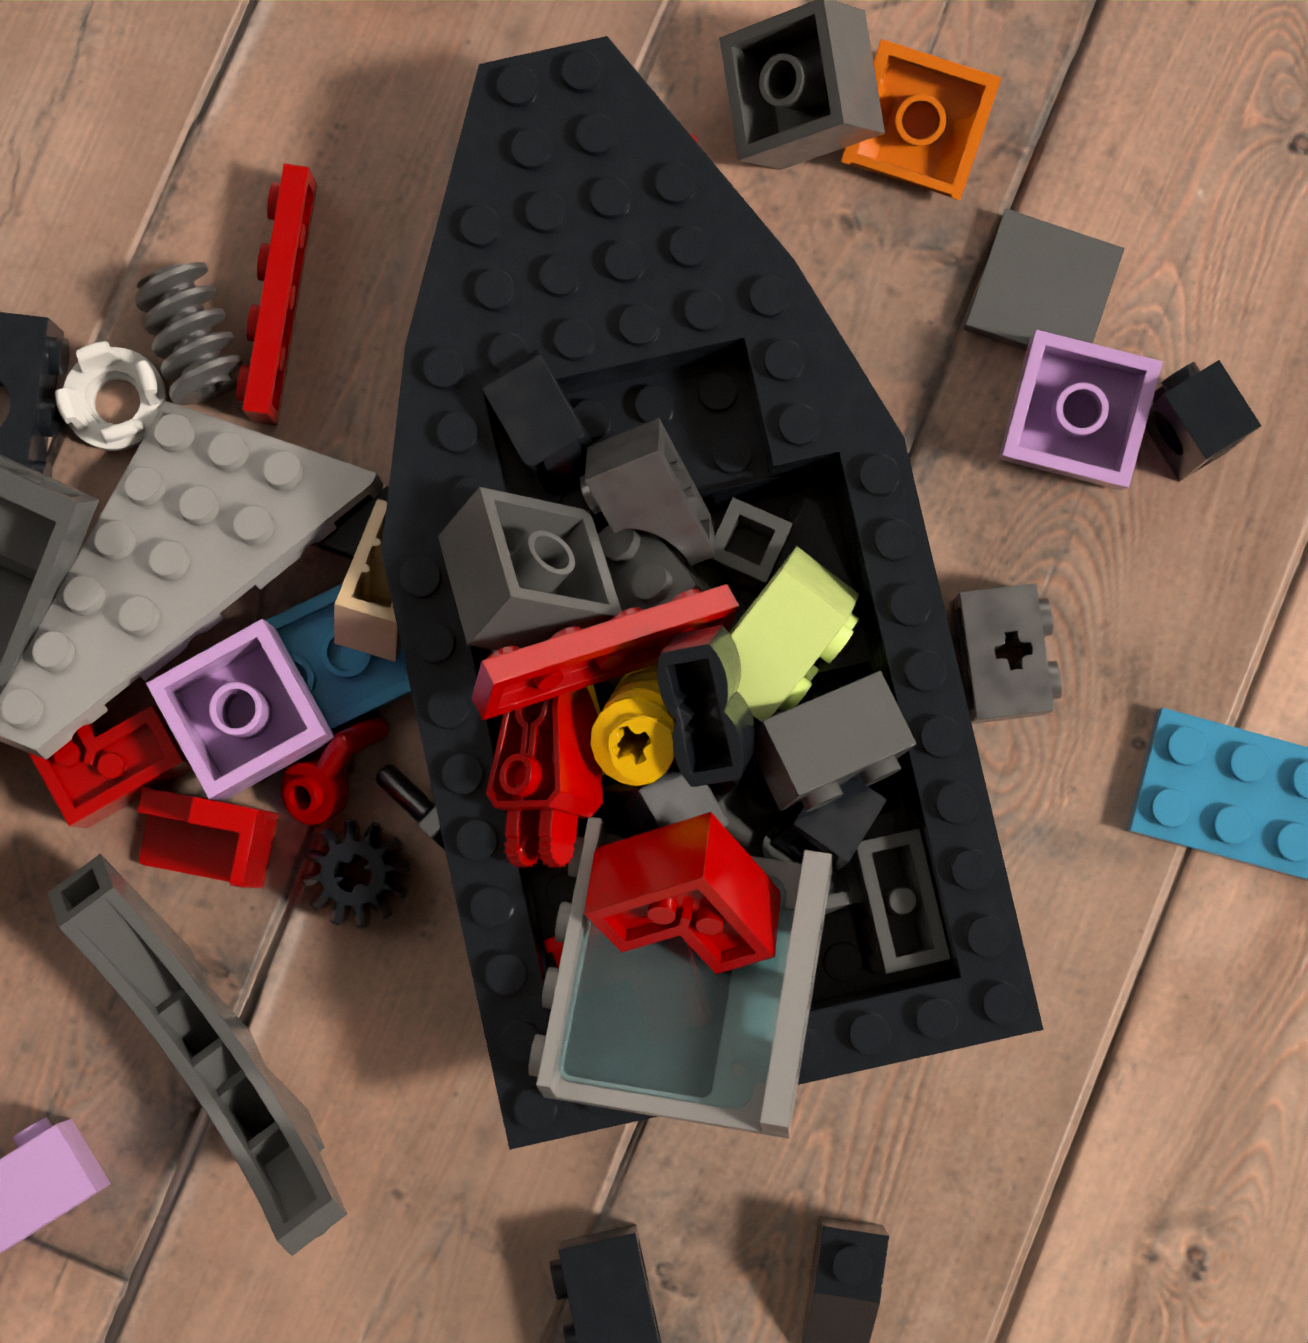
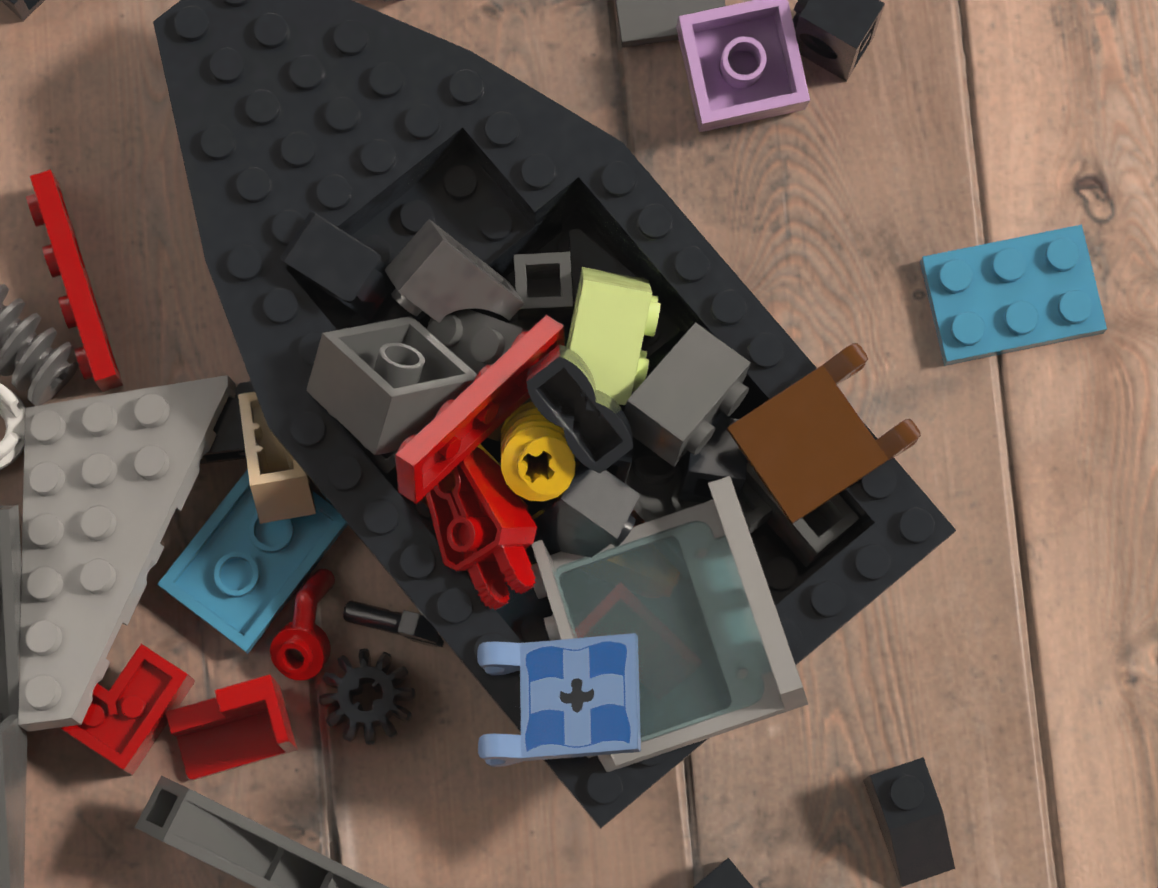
camera: 35 degrees left, 5 degrees down
(240, 711) = (216, 609): lavender brick -> none
(543, 1010) = (573, 698): none -> medium blue flag
(686, 884) = (632, 551): red panel -> none
(939, 859) = (812, 441): none -> reddish brown flag
(982, 625) = (783, 242): flat silver brick -> none

